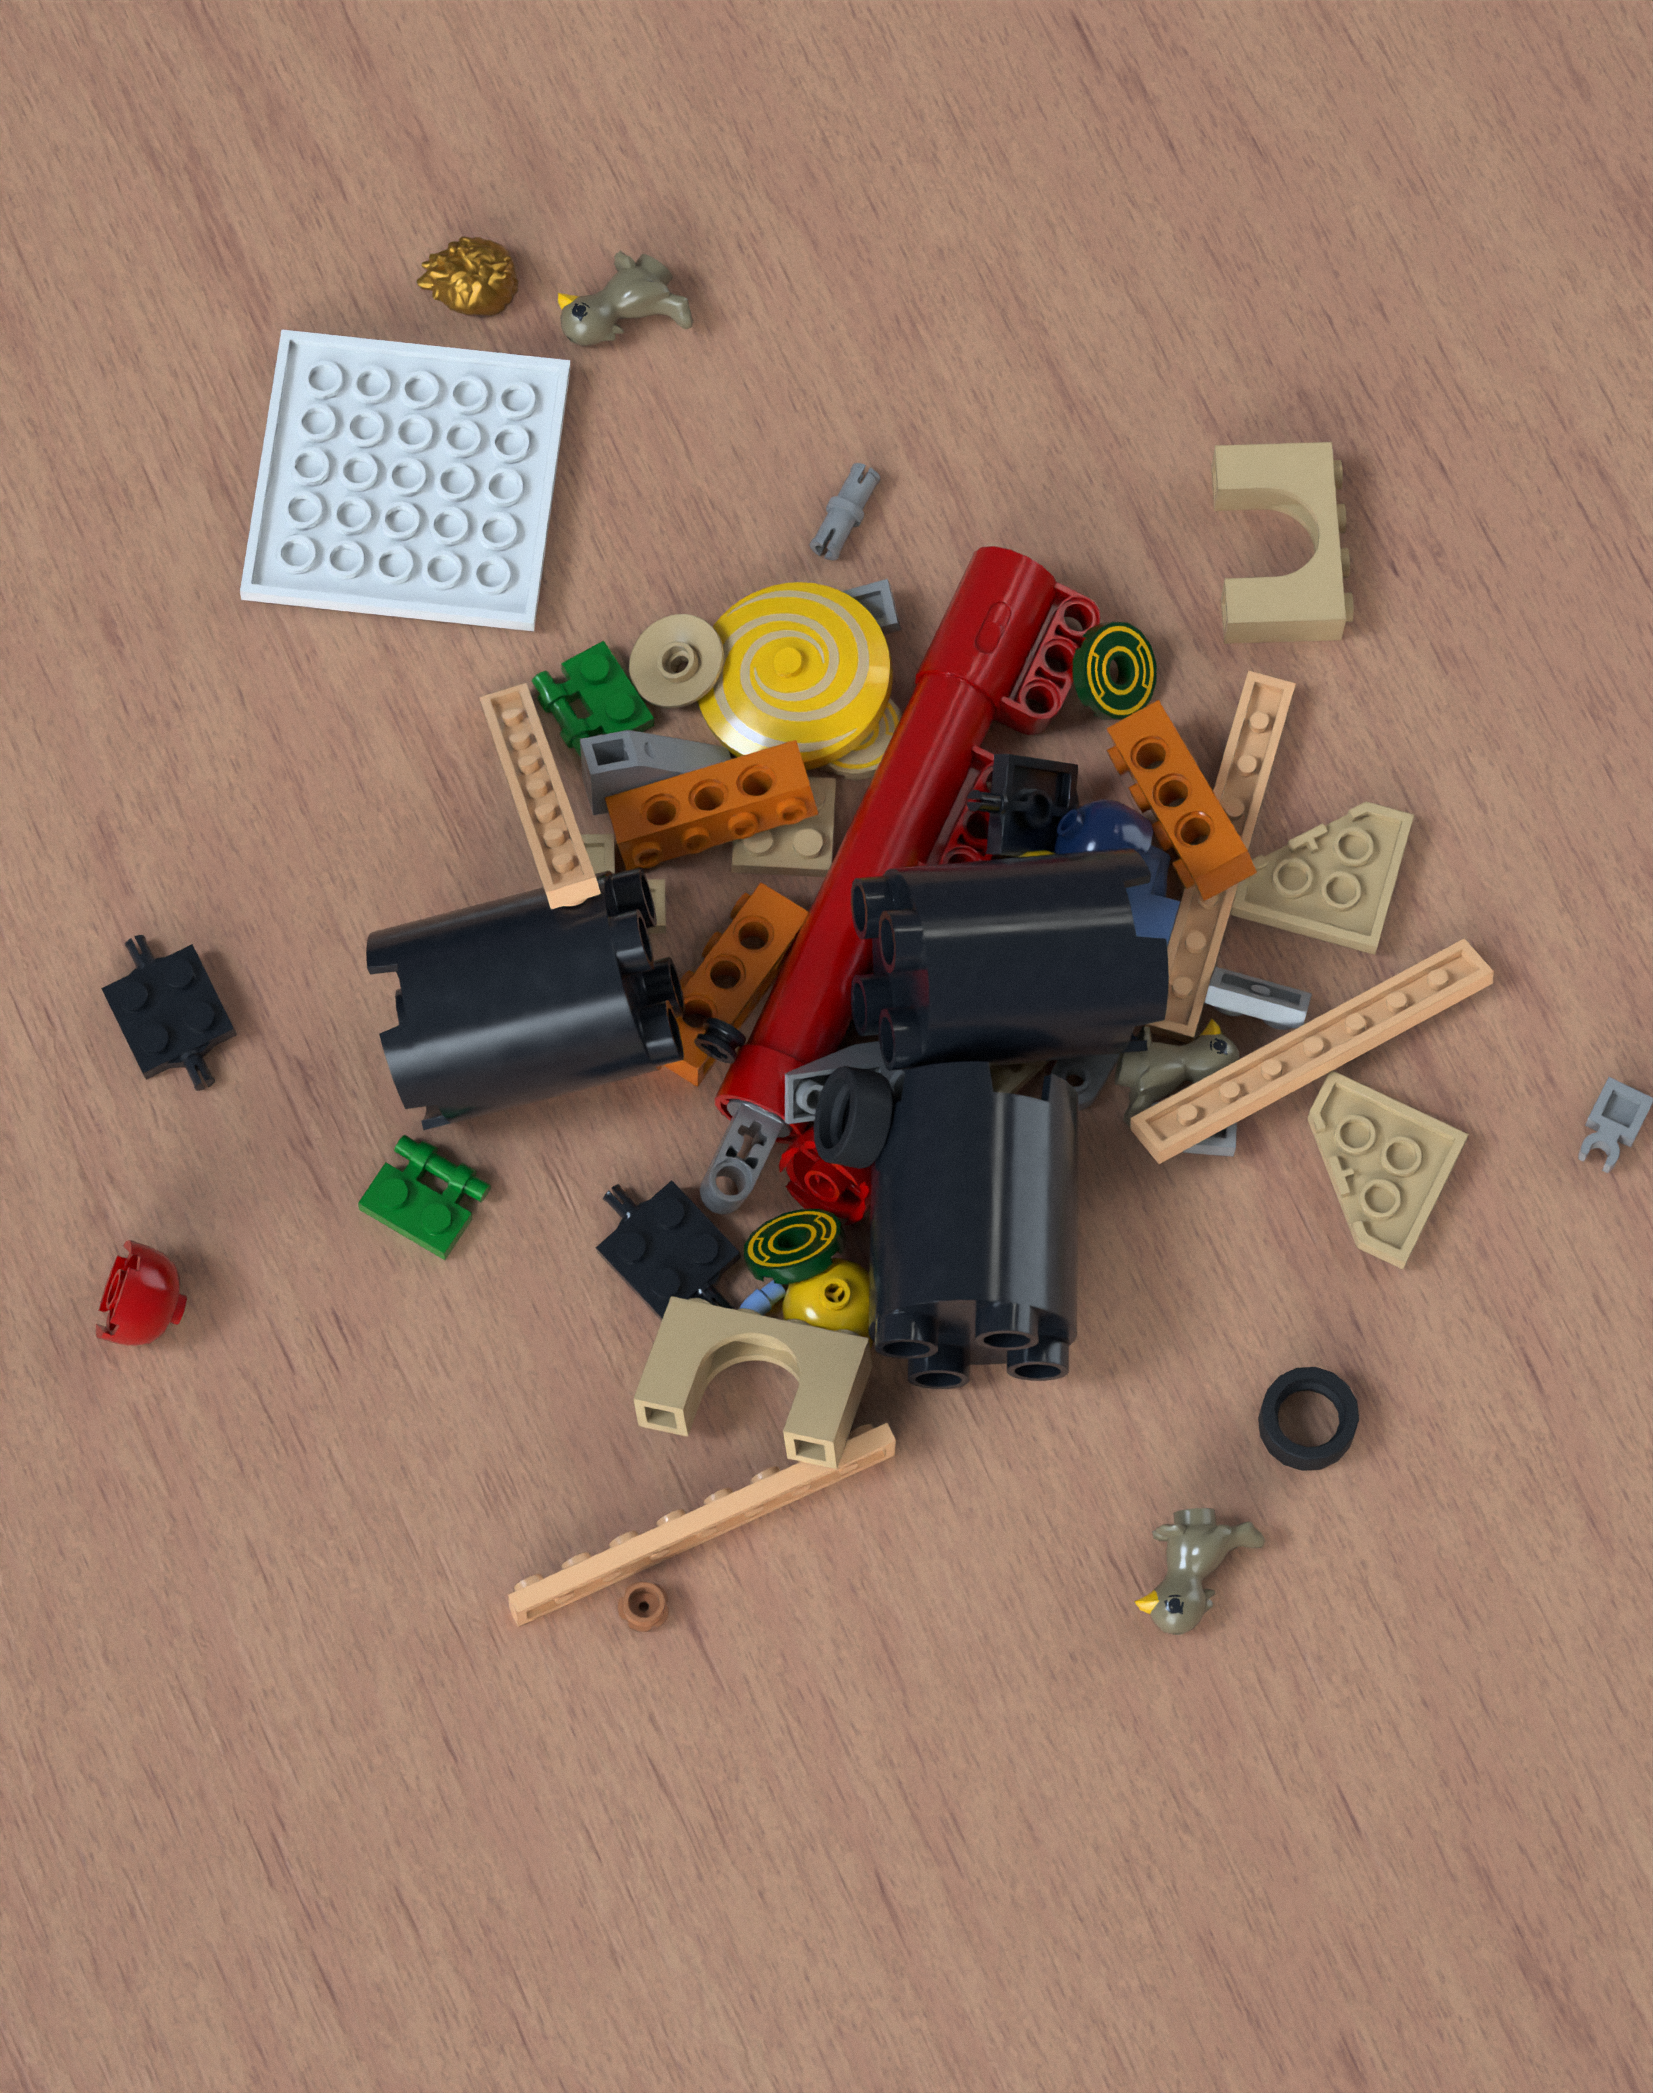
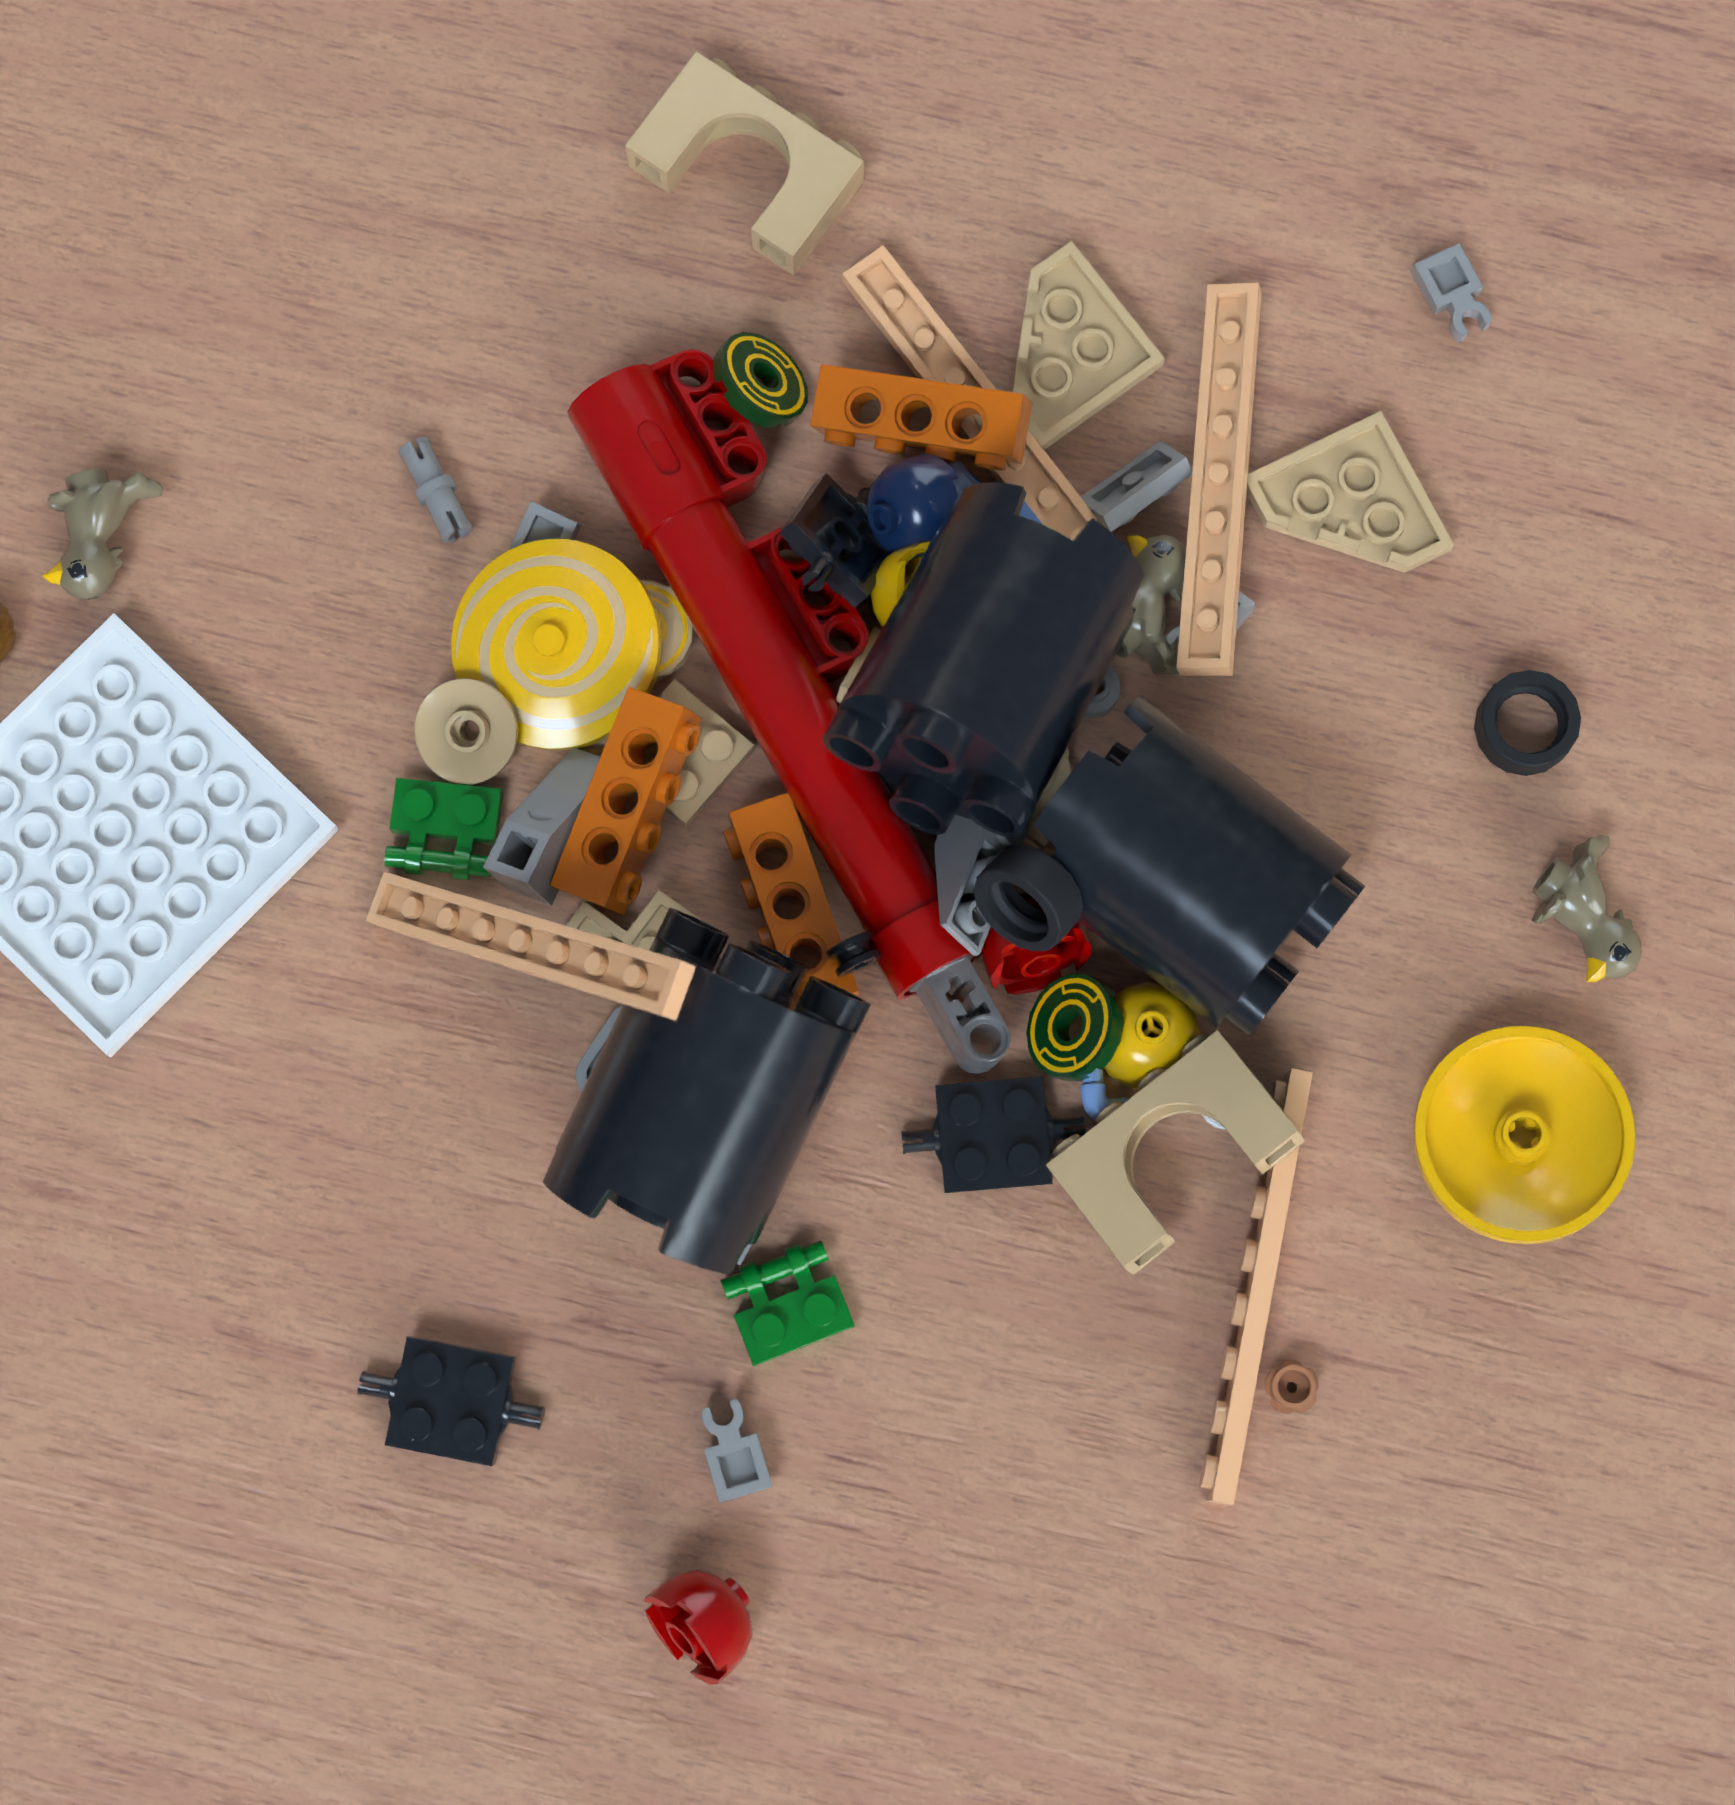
camera: 50 degrees left, 10 degrees up
(278, 1241) = (737, 1461): none -> light grey plate
(973, 1634) = (1524, 1135): none -> yellow dish

